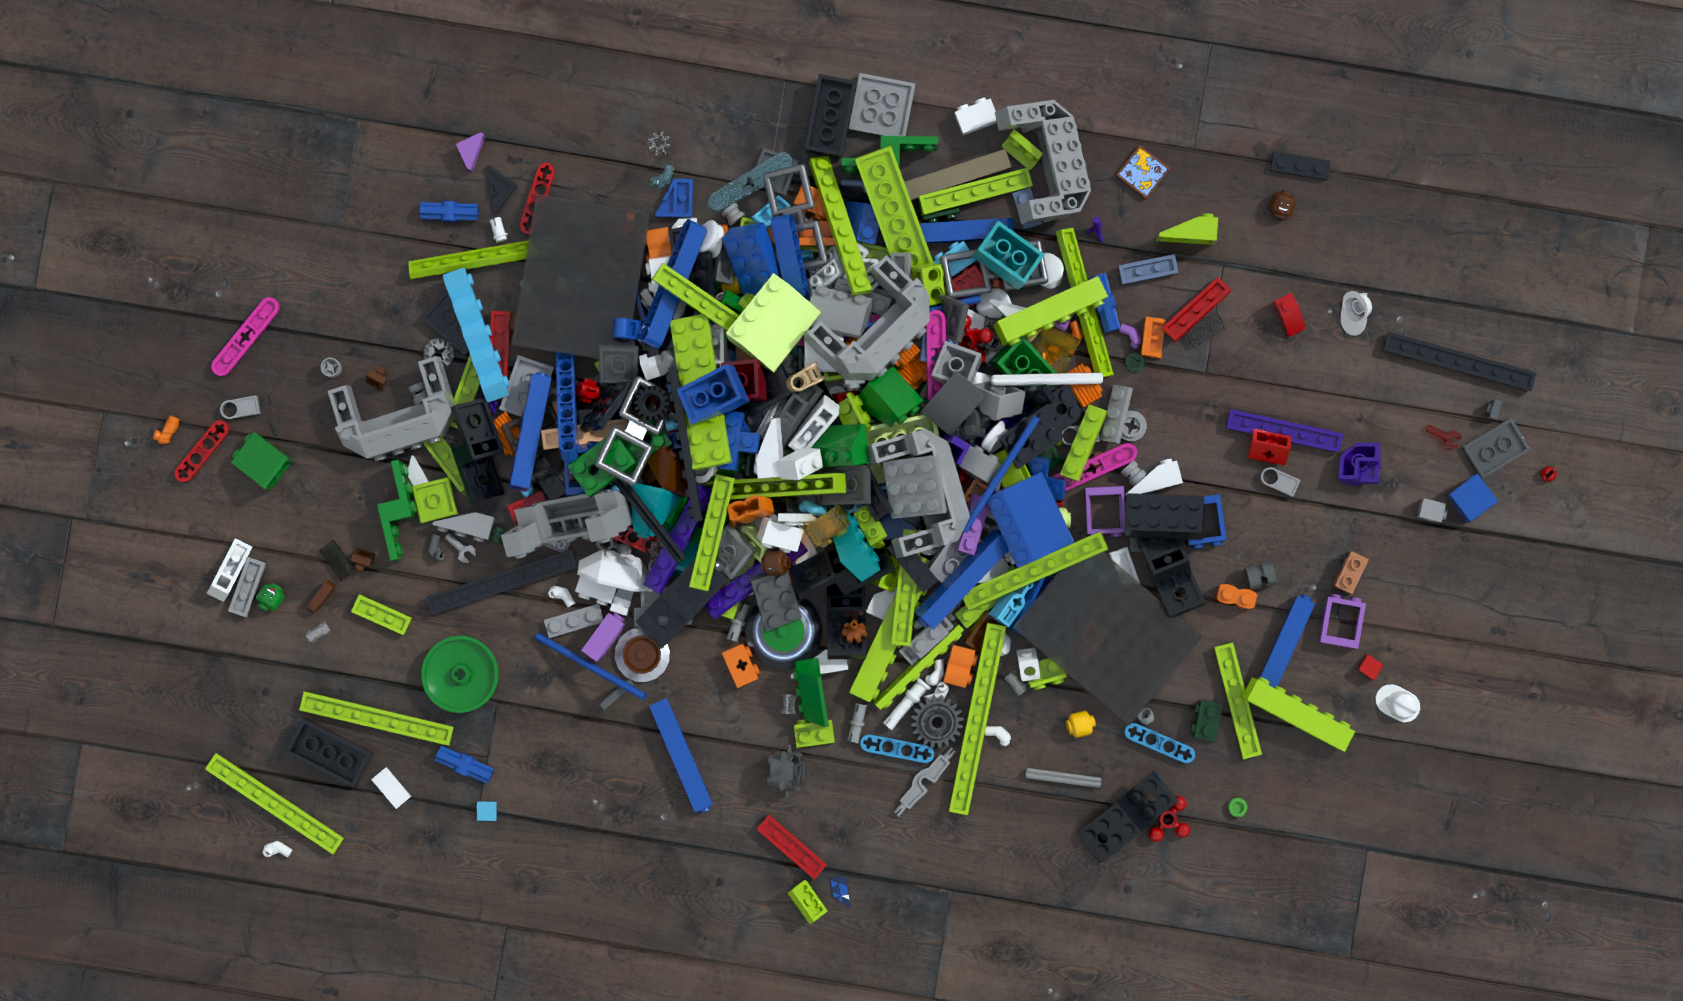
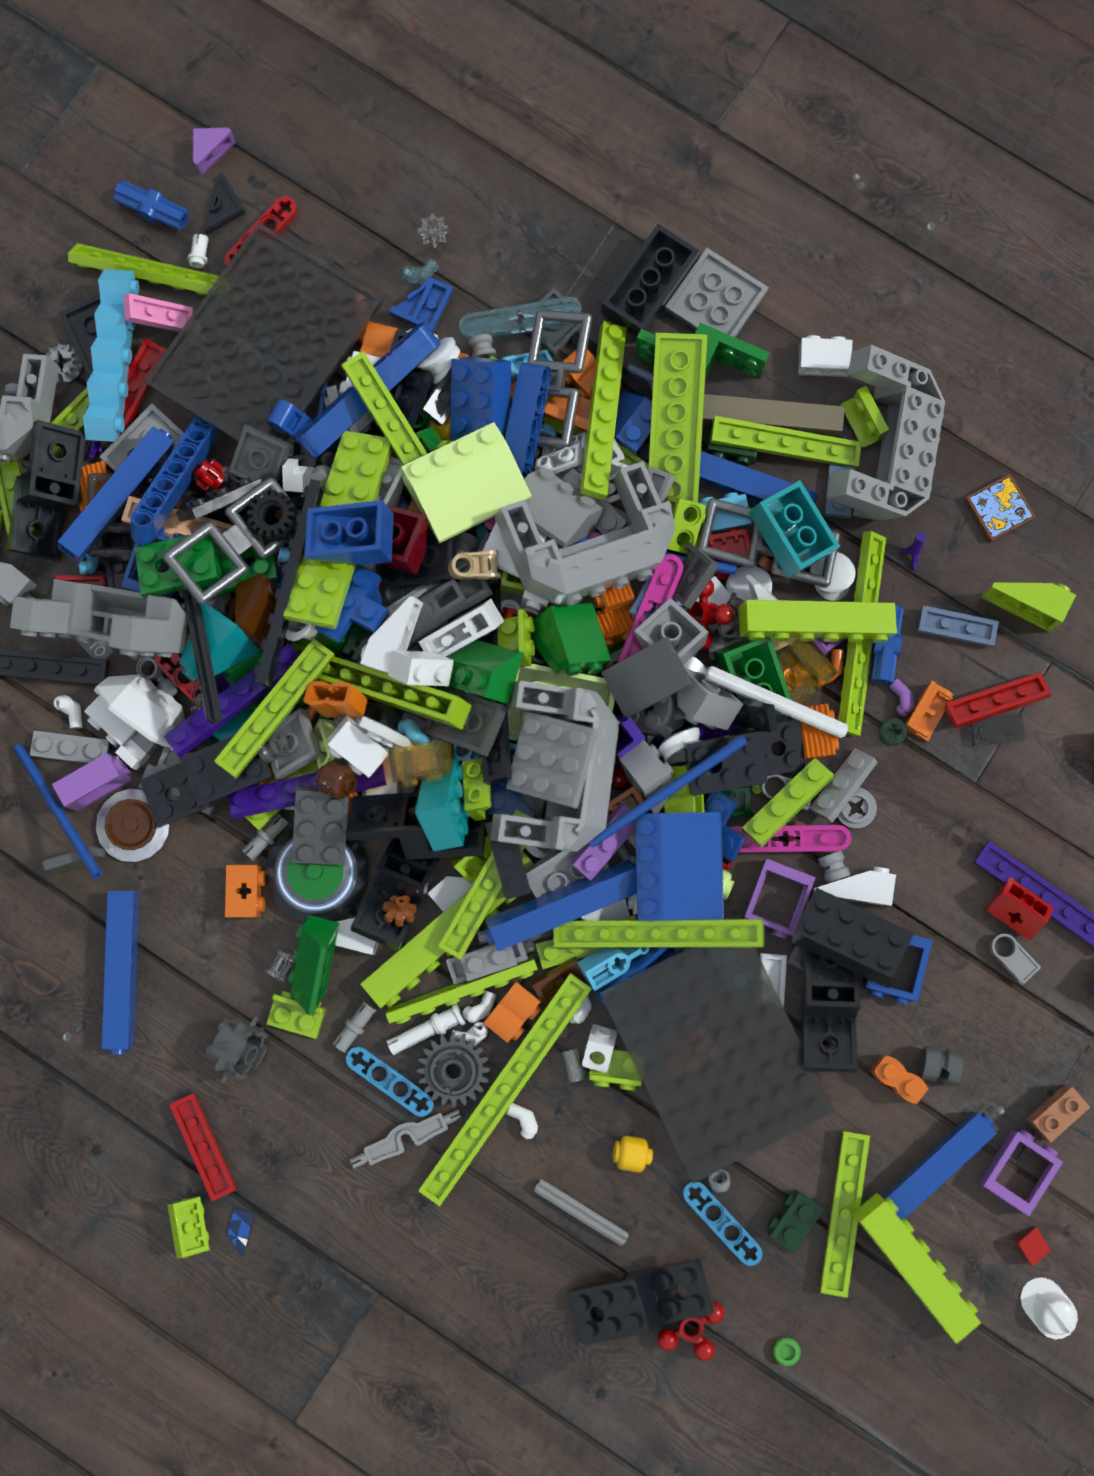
camera: 30 degrees right, 5 degrees down
(496, 290) = (155, 312): none -> bright pink plate

